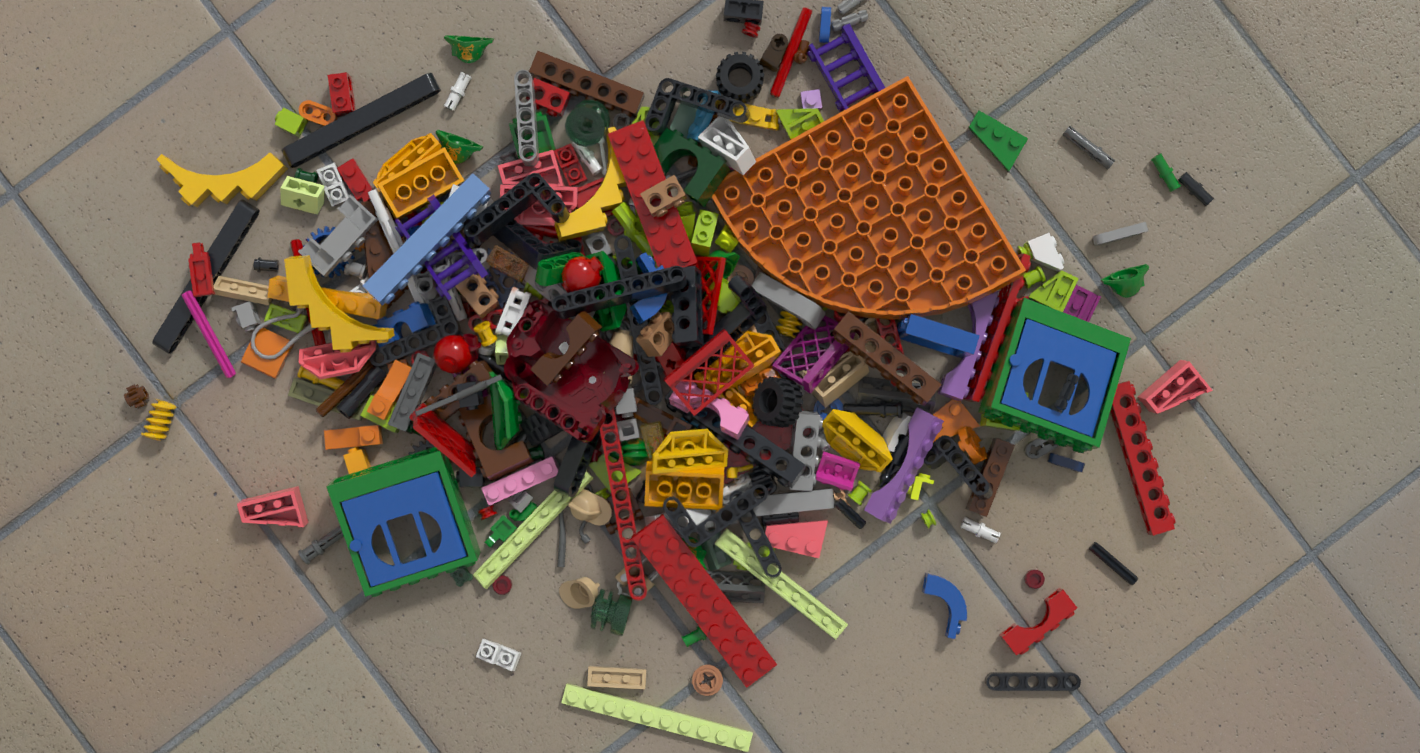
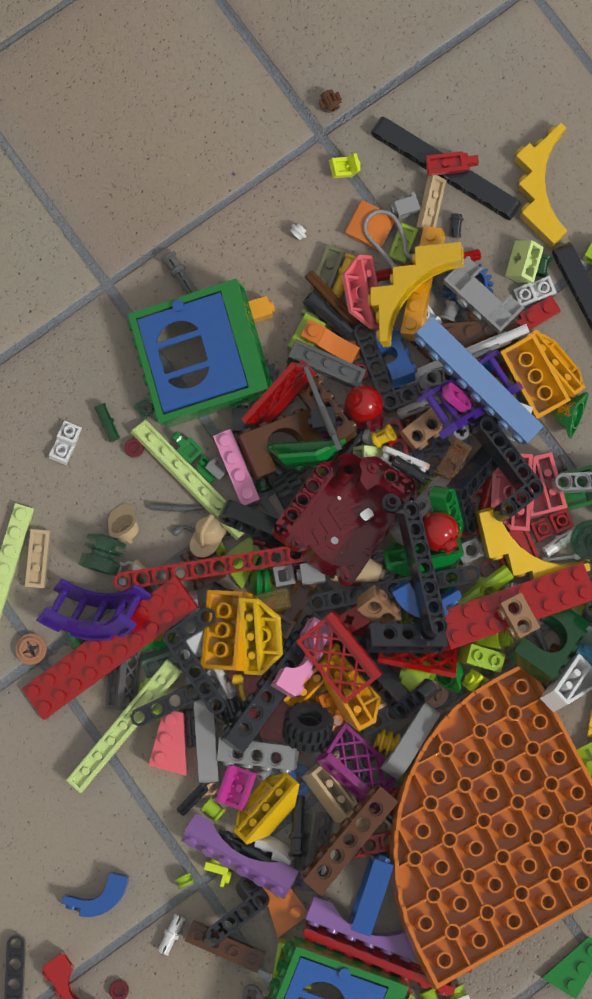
camera: 90 degrees right, 5 degrees down
(159, 419) = (306, 122): yellow piece -> none
(205, 379) = (344, 166): none -> neon yellow bracket
(209, 334) = (388, 170): dark pink axle -> none
(275, 424) = (298, 230): none -> white plate
(277, 507) = (217, 232): coral wedge -> none
(353, 437) = (284, 306): orange slope -> none
(445, 260) = (456, 397): none -> dark pink plate
(477, 613) = (107, 422): none -> dark green pin
(487, 512) = (206, 434): red bush -> none
(520, 305) = (411, 470): none -> black pin
(556, 328) = (387, 506): none -> black plate
(580, 331) = (382, 529): reddish brown arch -> none
(683, 593) = (95, 629): none -> dark purple fence
(969, 442) = (260, 926): orange plate -> none

